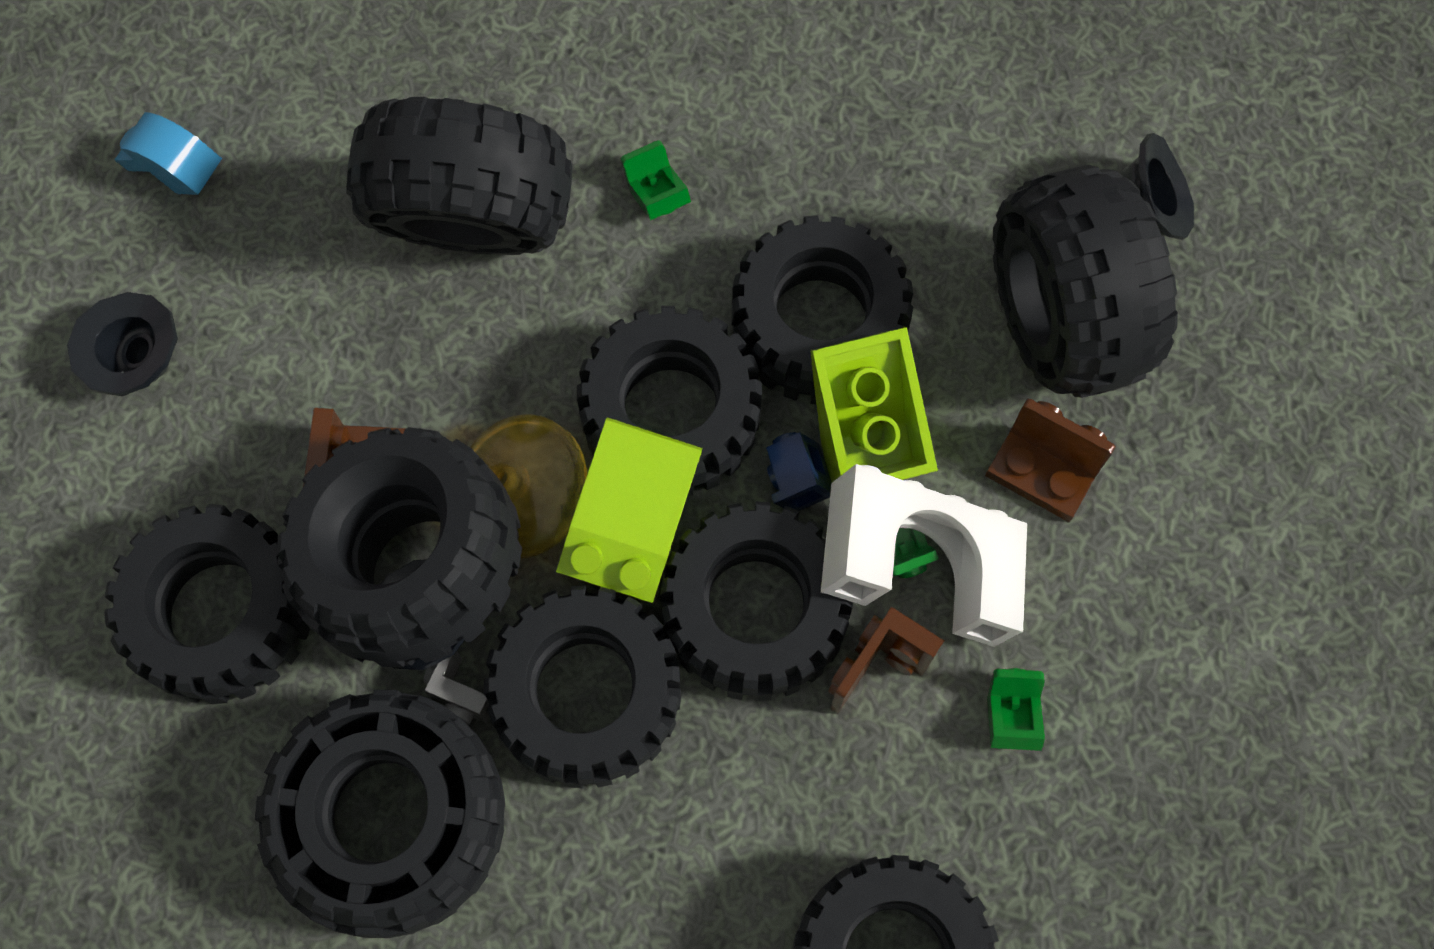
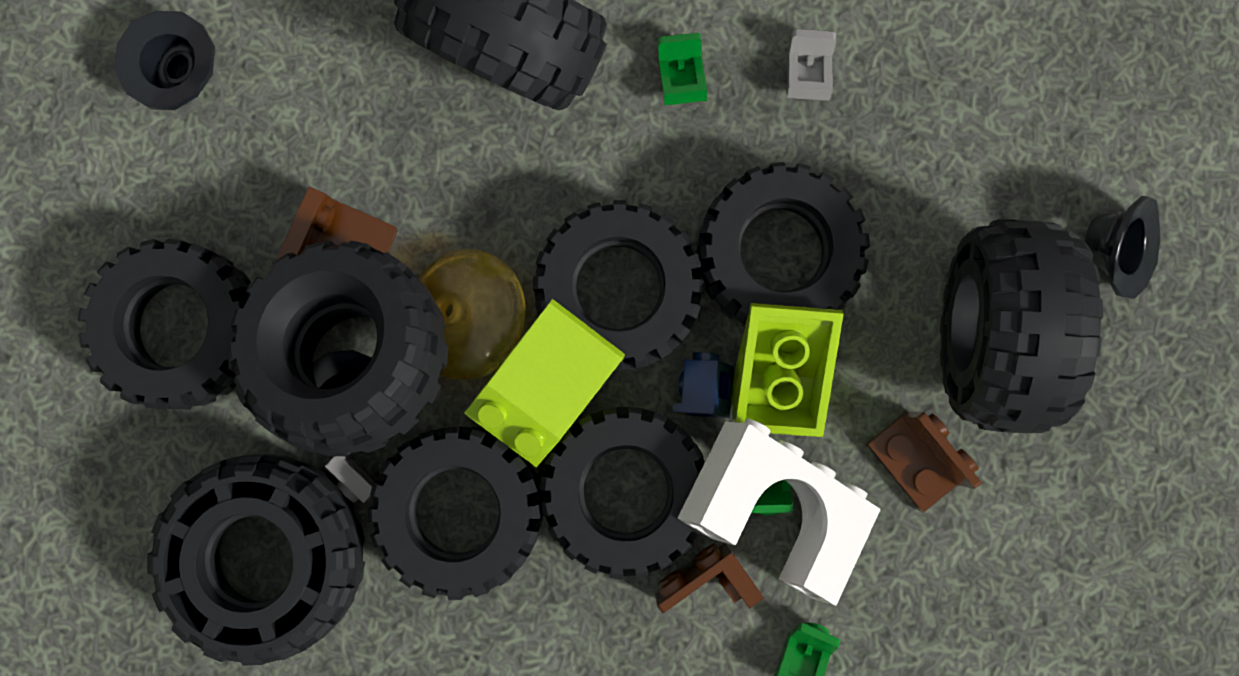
camera: 20 degrees right, 15 degrees up
(779, 135) = (810, 65): none -> light grey bracket

